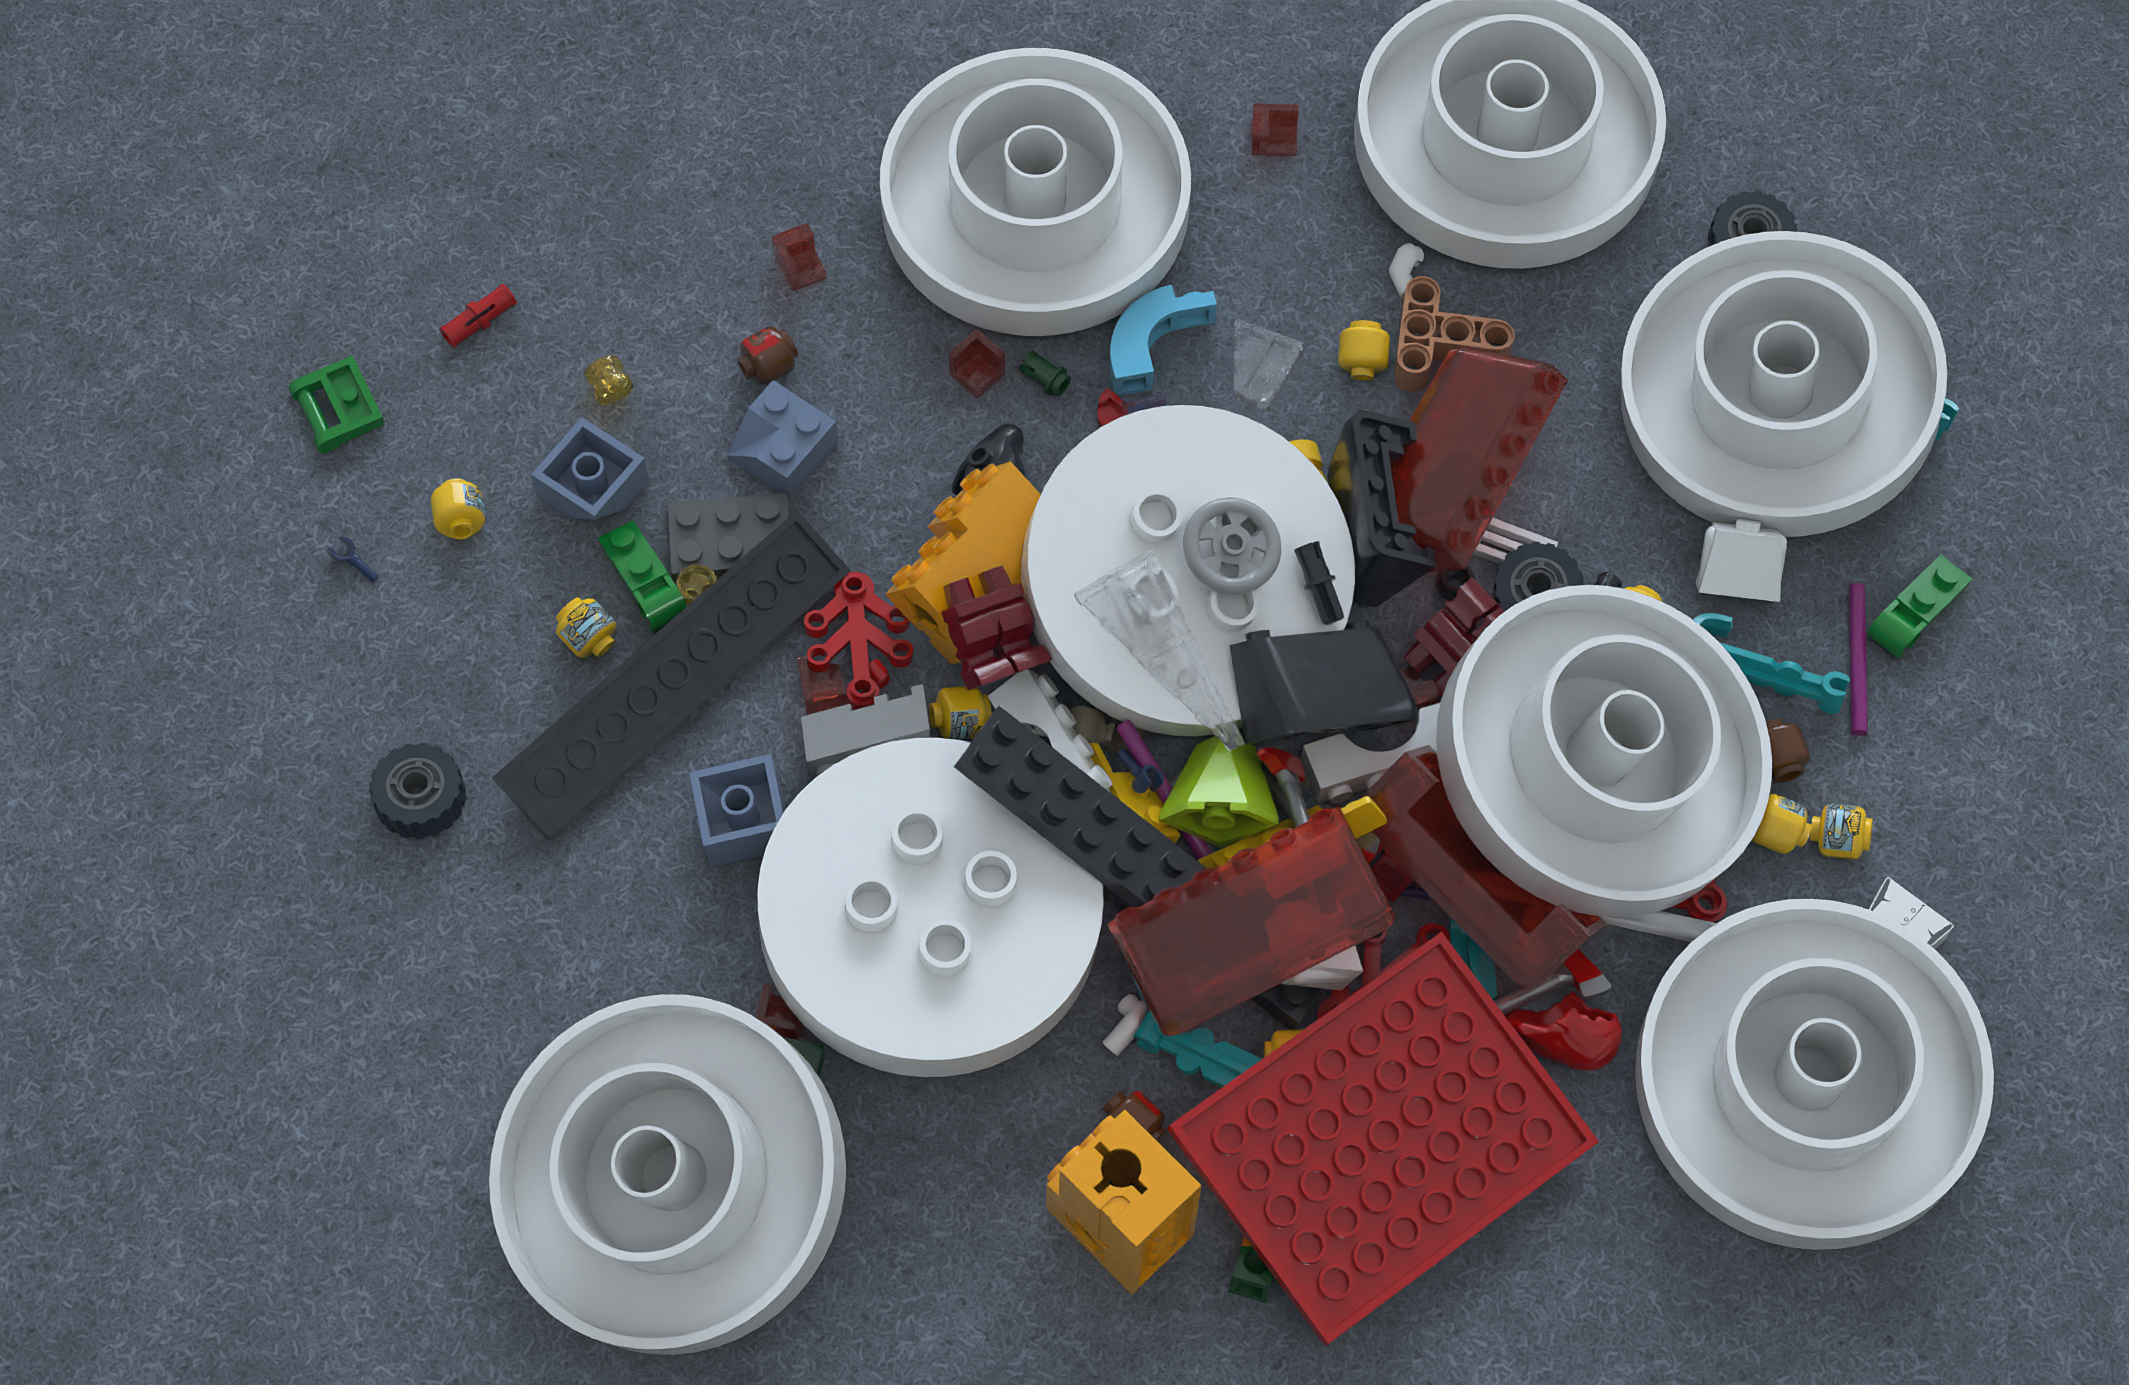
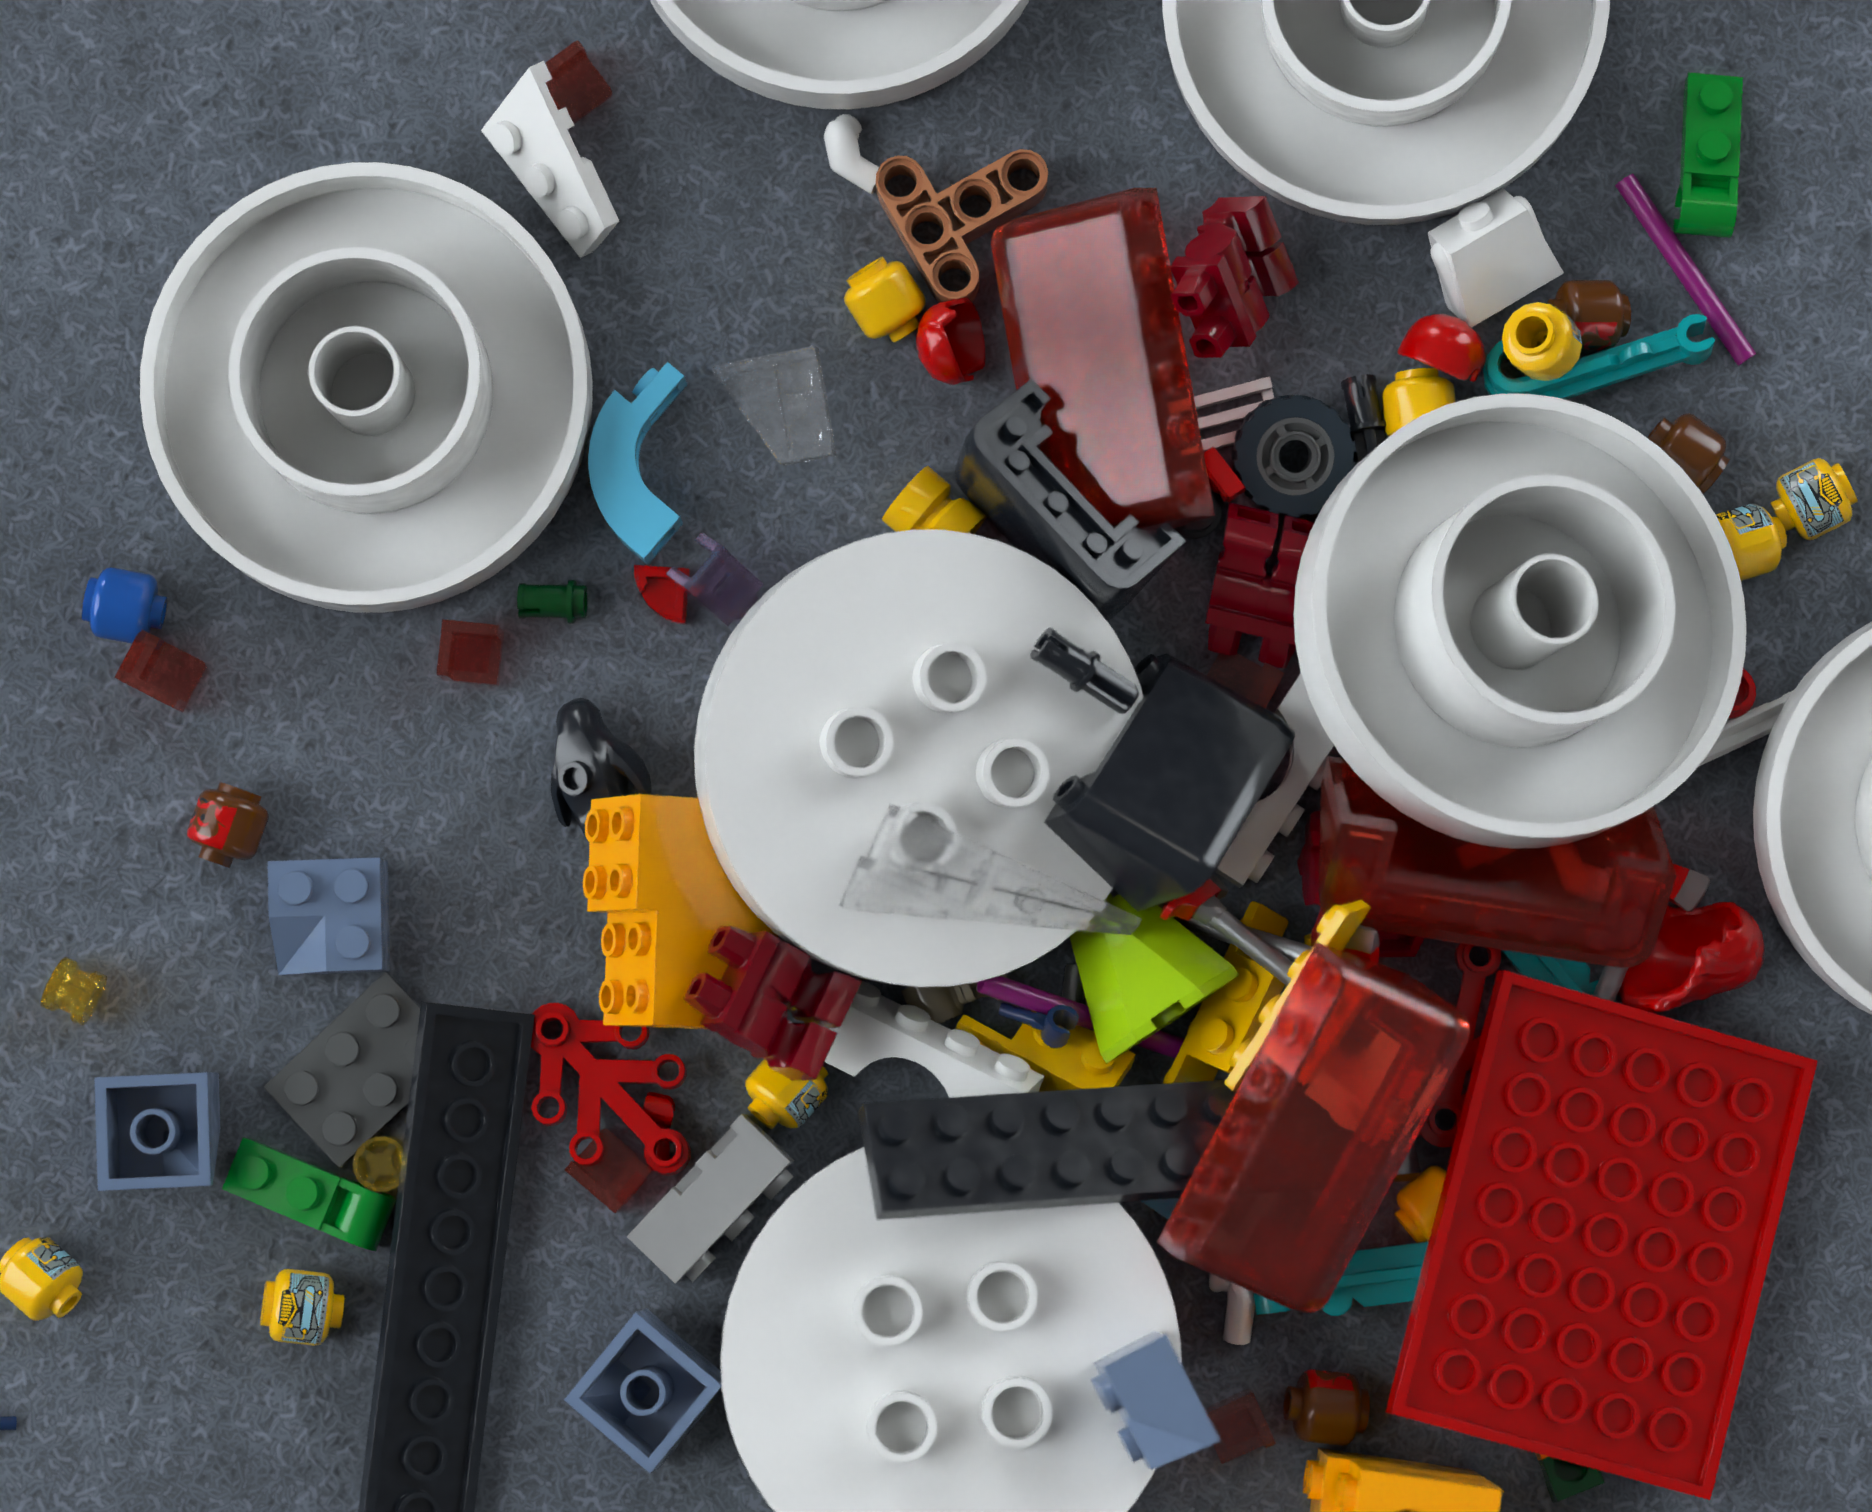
camera: 35 degrees left, 20 degrees up
(808, 205) = (123, 604): none -> blue head
(1034, 979) = (1154, 1401): none -> sand blue slope
(1069, 1092) = (1239, 1426): none -> clear red panel
(1208, 568) = (921, 725): light grey plate -> none
(1229, 155) = (541, 153): none -> white wing
(1386, 391) = (951, 341): none -> red hair
(1485, 566) = (1222, 477): none -> red tile
(1564, 459) = (1229, 272): none -> dark red hips
(1678, 588) = (1445, 345): none -> red hair
(1737, 620) = (1541, 341): none -> yellow head
(1778, 636) = (1596, 310): none -> reddish brown head

